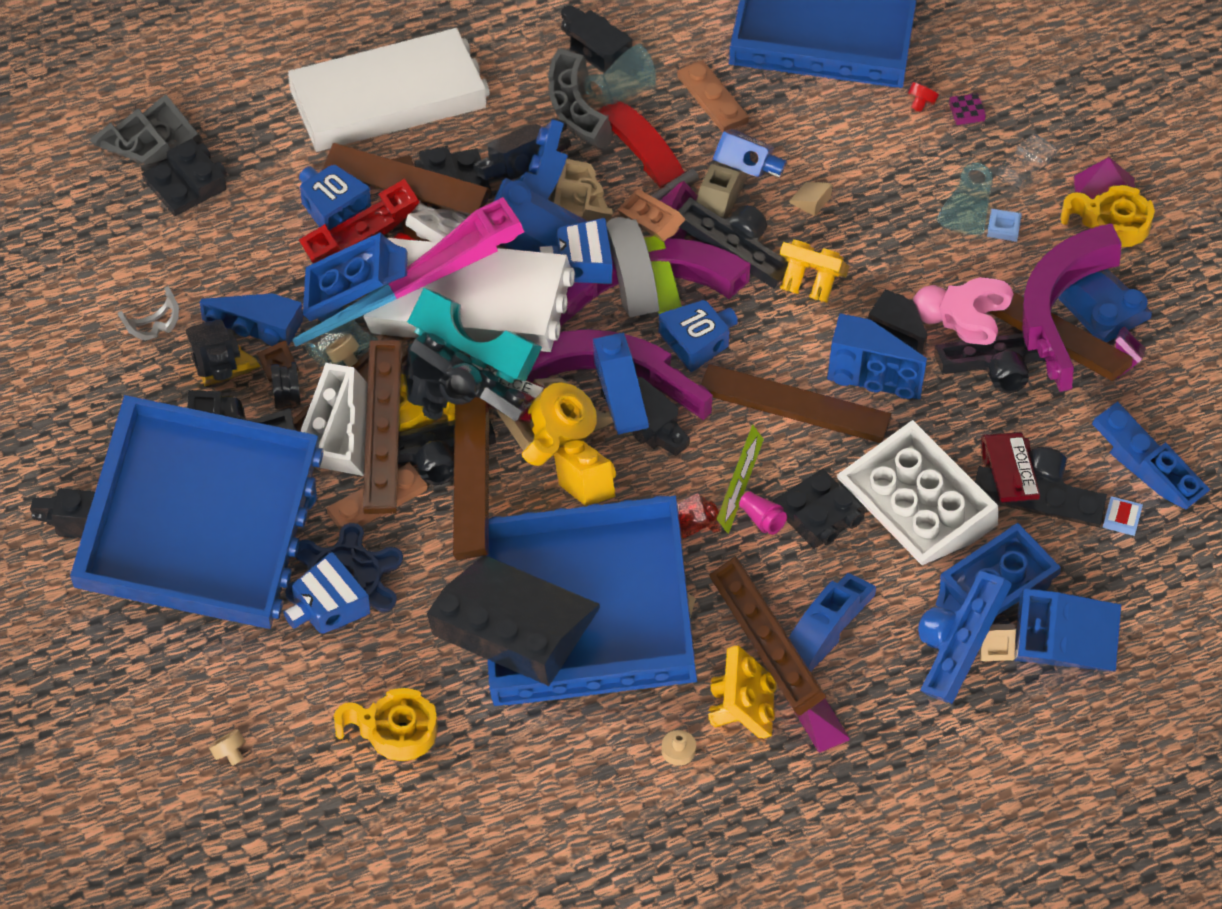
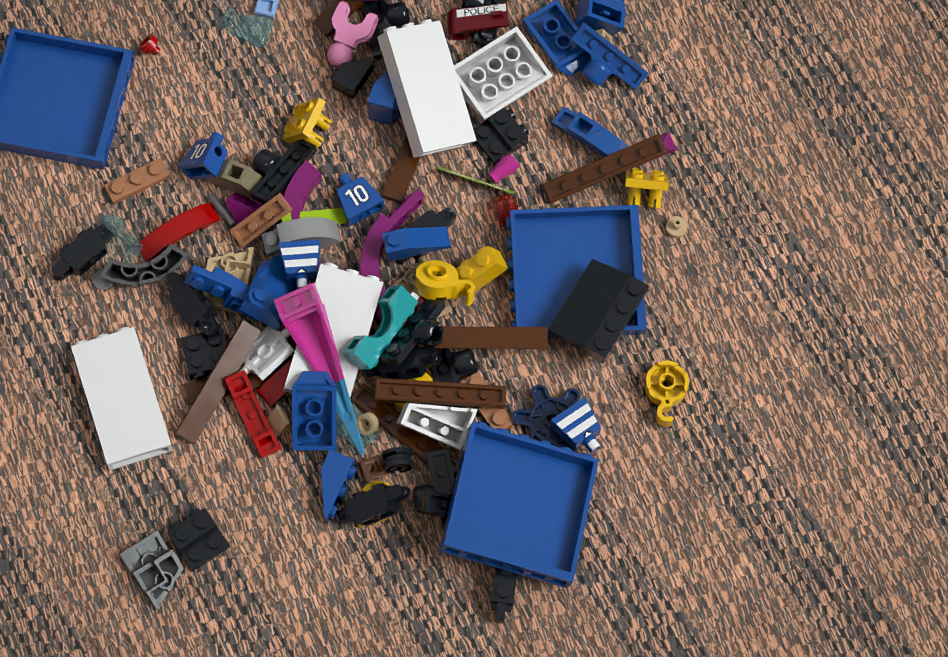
camera: 90 degrees left, 15 degrees up
(131, 324) = (320, 540): light grey helmet -> none
(228, 747) = (681, 489): tan tile -> none
(332, 195) = (223, 435): blue torso -> none
(812, 196) = (236, 122): tan slope -> none
(872, 385) = (426, 87): none -> white brick
(967, 109) = (159, 19): magenta tile -> none

